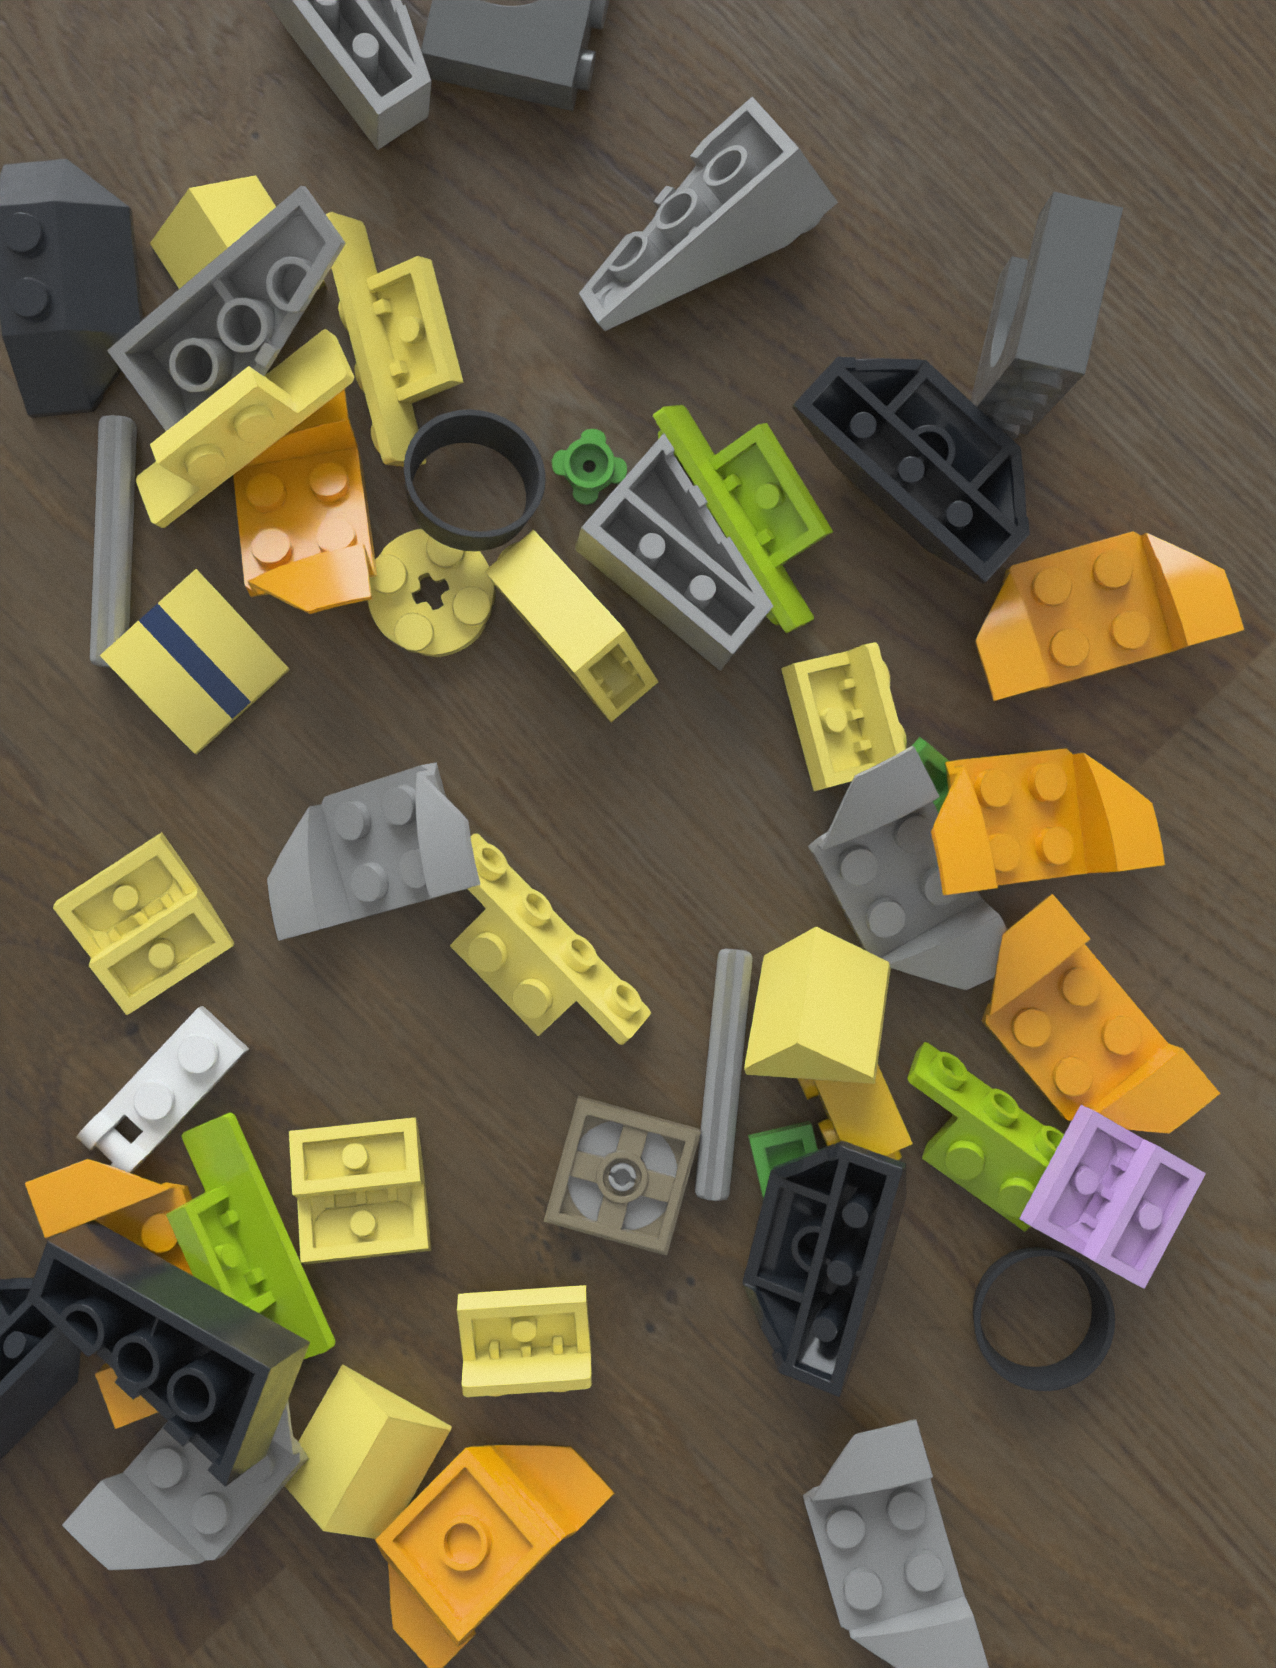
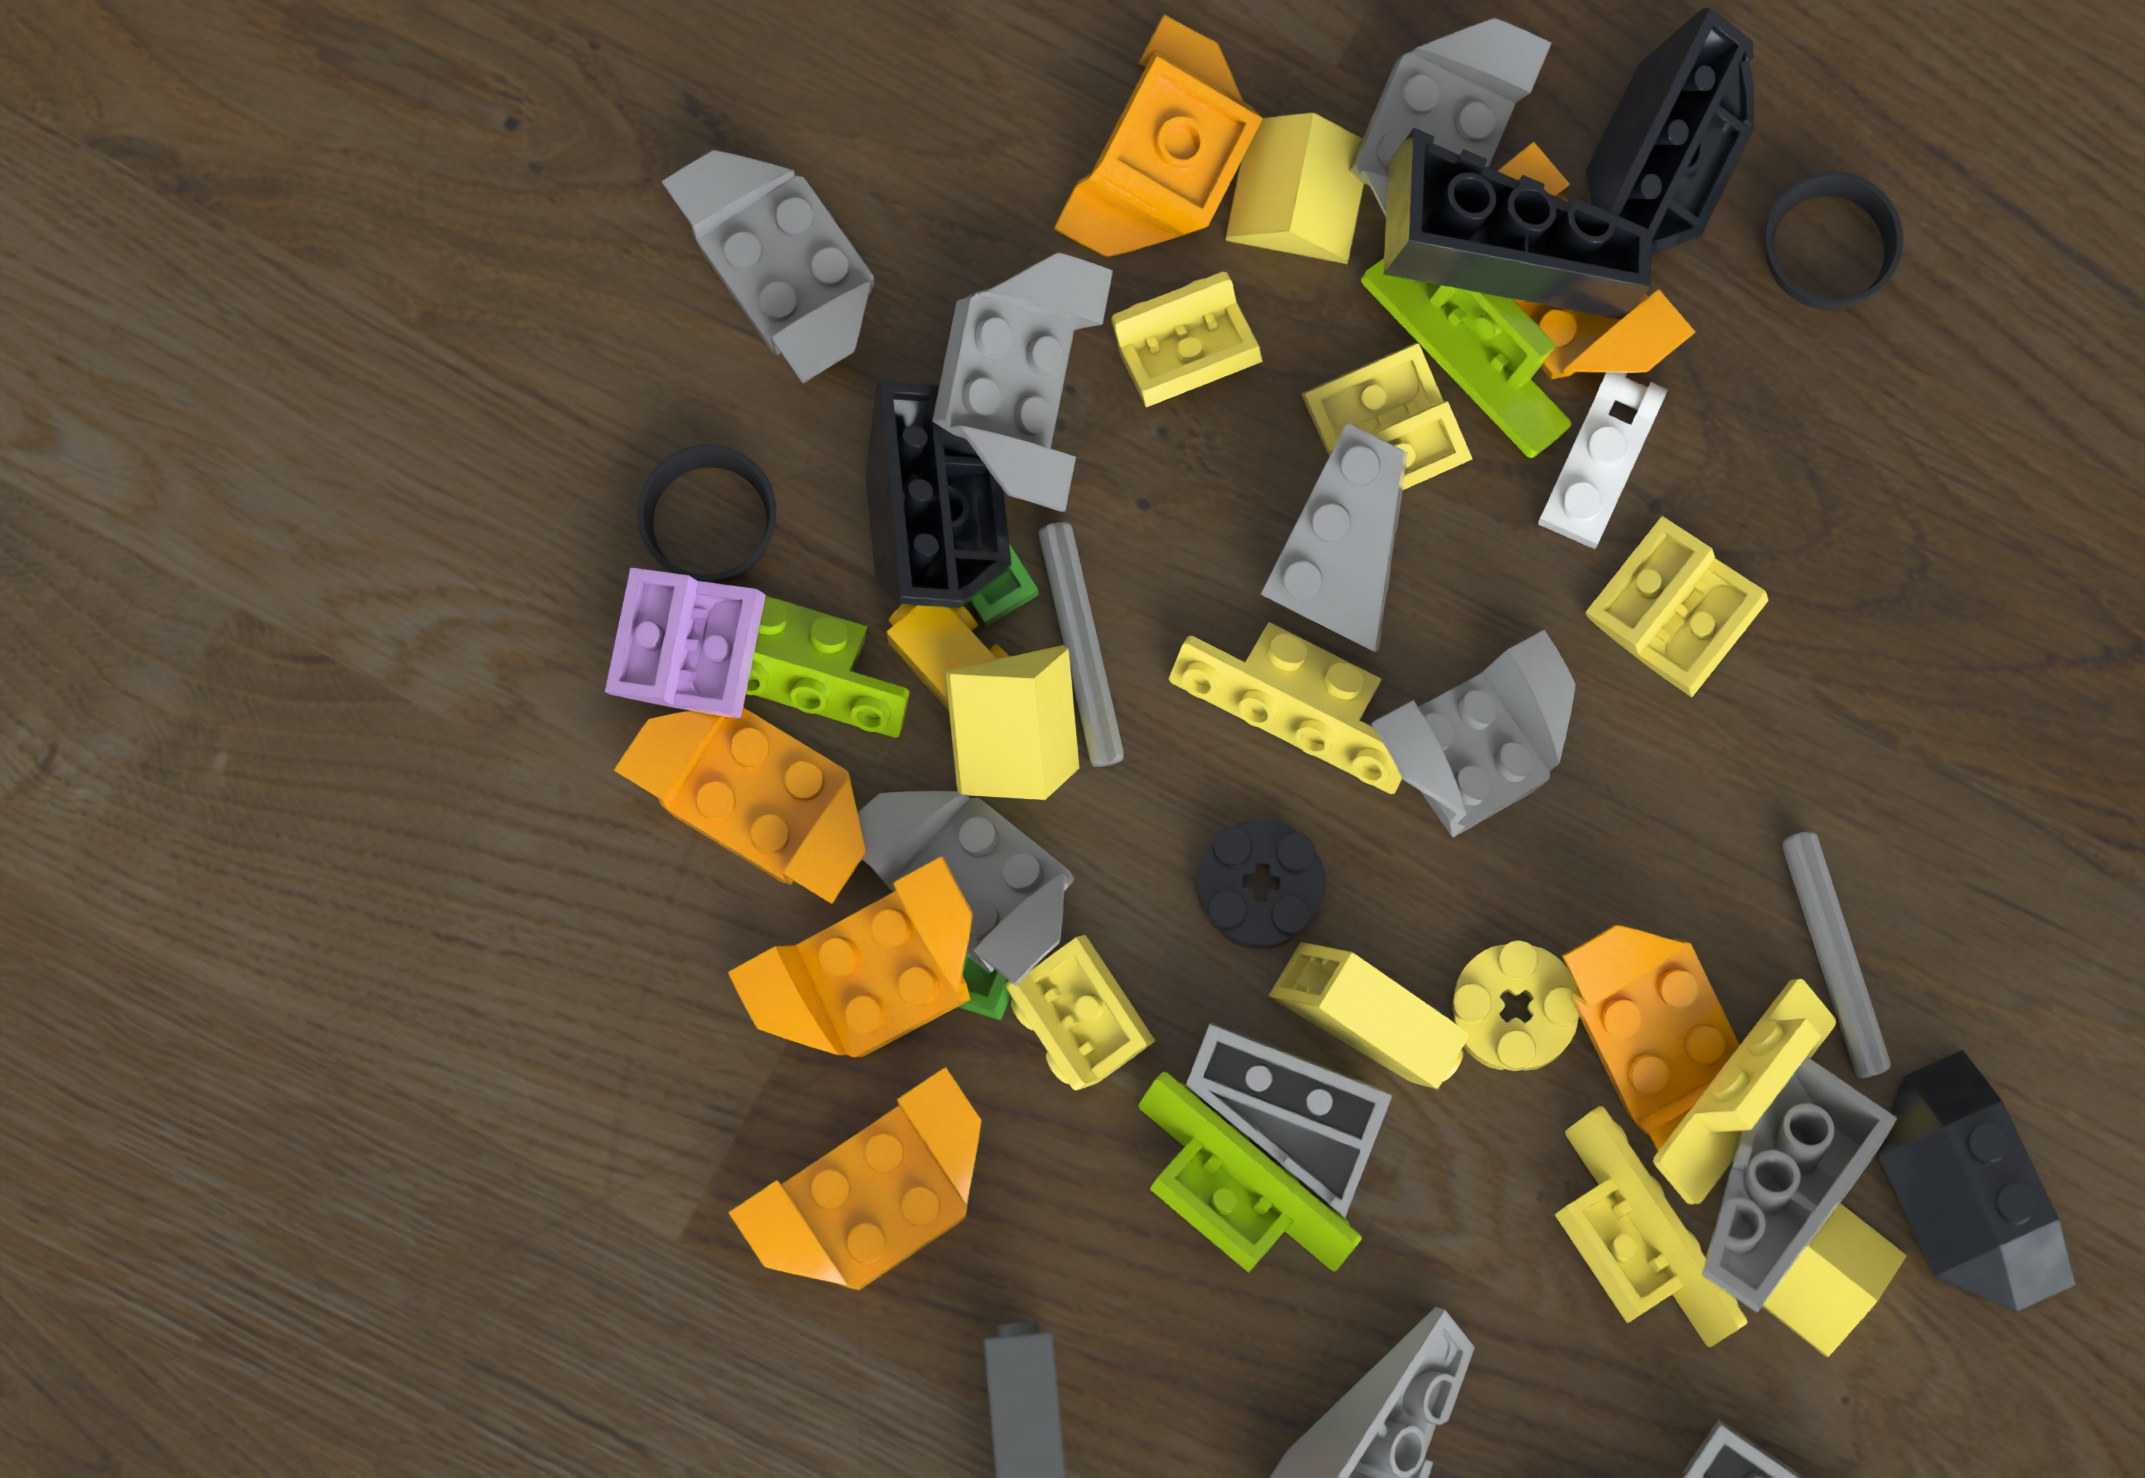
camera: 165 degrees right, 10 degrees down
(195, 662) = (1715, 863): light yellow slope -> none
(441, 1088) = (1344, 540): none -> light grey wedge
(481, 429) = (1510, 1178): black tyre -> none
(591, 448) = (1404, 1160): bright green plate -> none
(615, 754) = (1233, 907): none -> black plate
(622, 1175) = (1145, 519): dark tan piece -> none
(707, 1363) = (1010, 369): none -> light grey piece
(922, 457) = (1087, 1282): black wedge -> none

